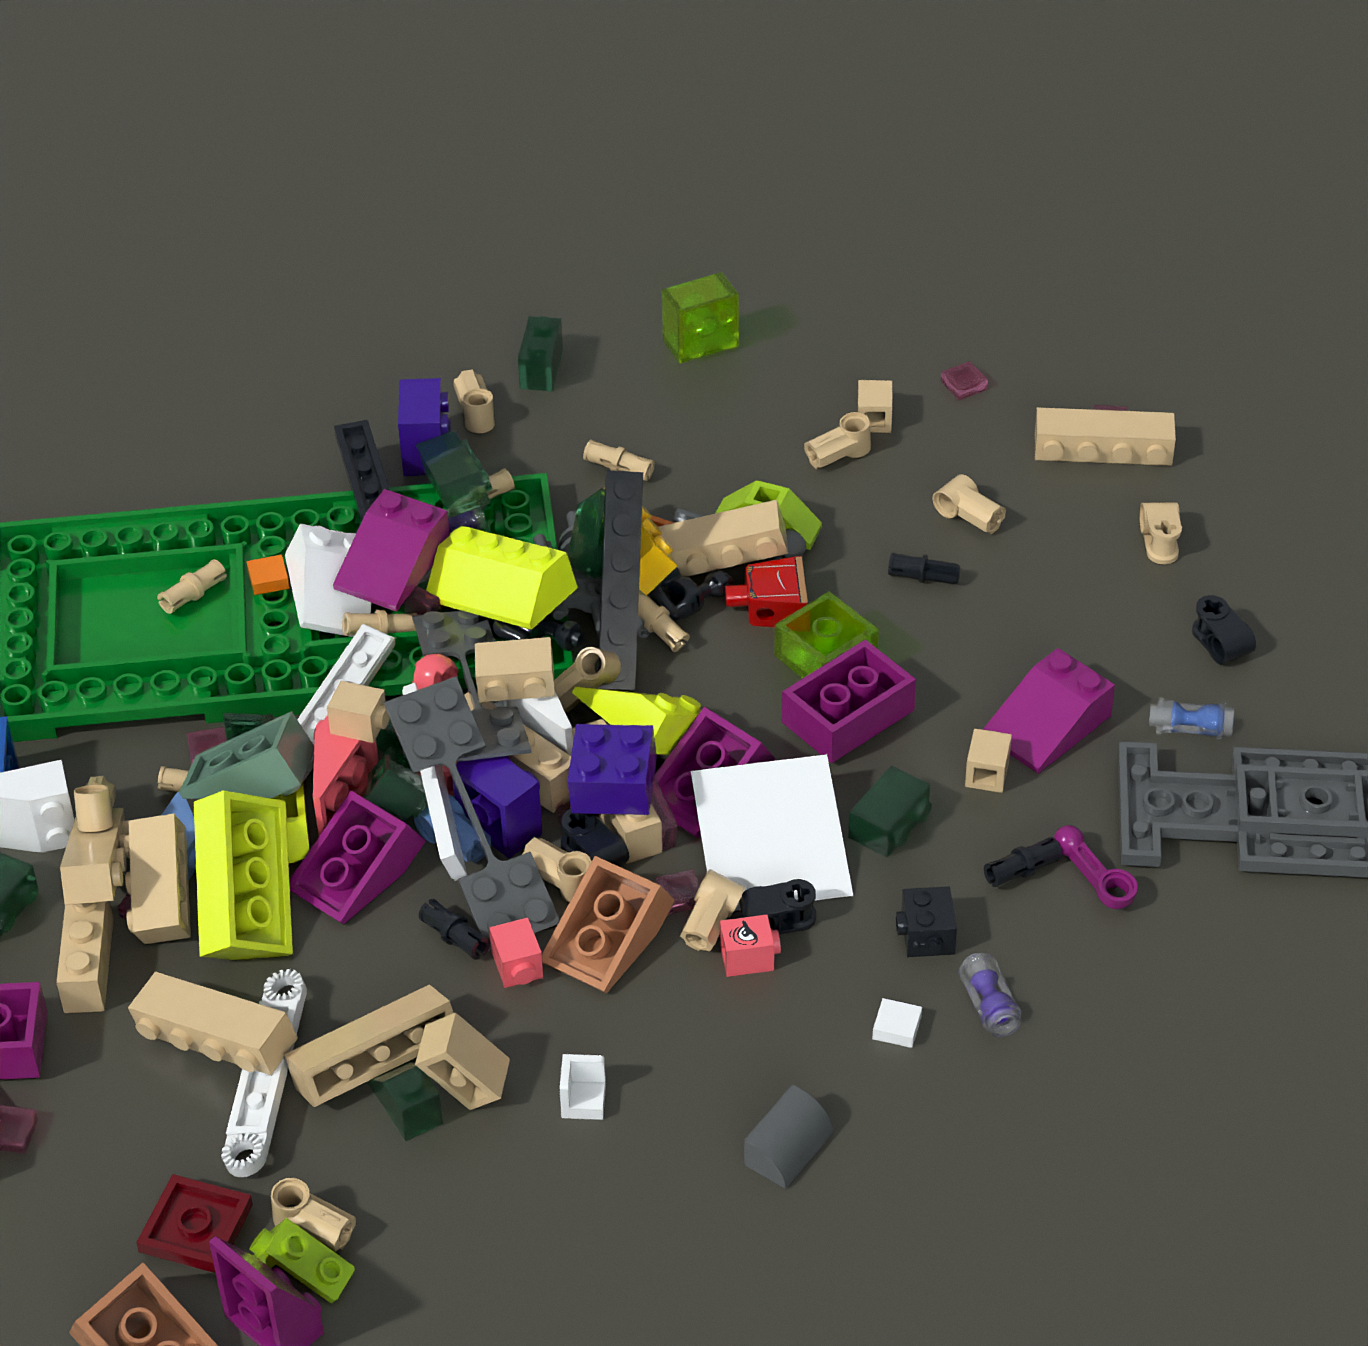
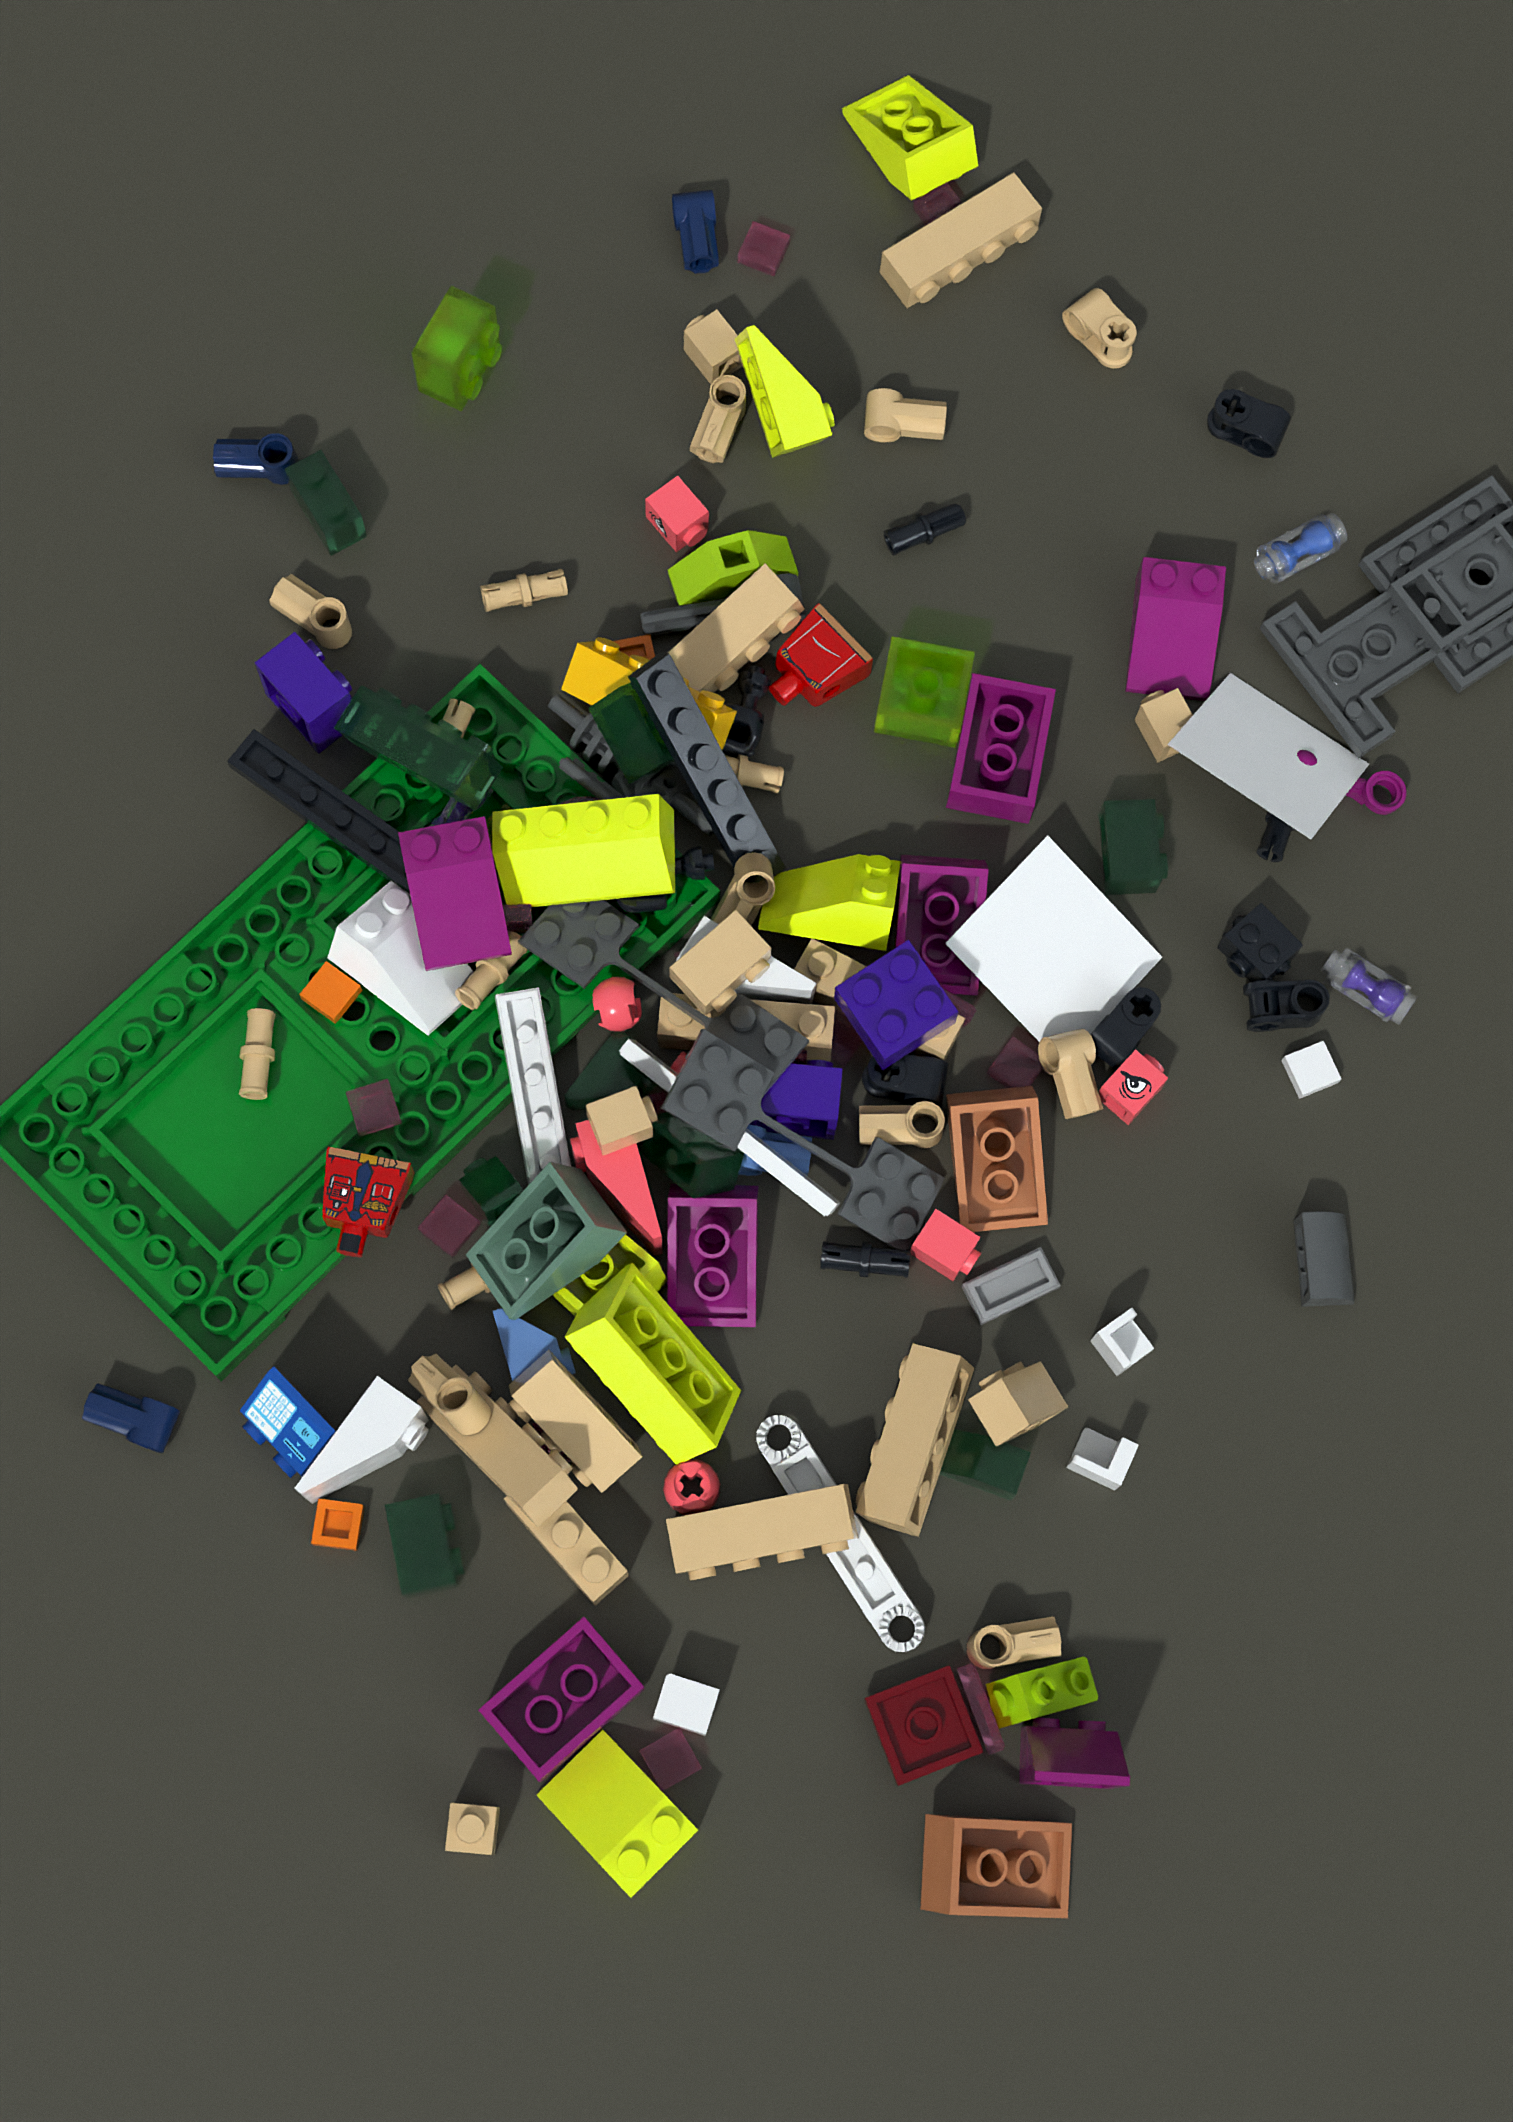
camera: 45 degrees left, 30 degrees up
(54, 1097) = (686, 1704): none -> white panel
(166, 679) = (362, 1196): none -> torso
(199, 970) = (674, 1488): none -> coral piece
(226, 645) = (373, 1107): none -> clear pink tile
(245, 1226) = (981, 1708): none -> clear pink tile
(495, 1154) = (1102, 1458): none -> white panel
(517, 310) = (253, 456): none -> dark blue piece
(540, 1012) = (1010, 1286): none -> light grey tile
(759, 464) = (677, 514): none -> coral brick
(881, 448) = (783, 398): none -> neon yellow slope
(913, 968) = (1275, 1004): none -> black piece
(927, 343) = (695, 220): none -> dark blue piece
(1037, 804) = (1255, 750): none -> white sticker
(1124, 374) = (913, 136): none -> neon yellow slope

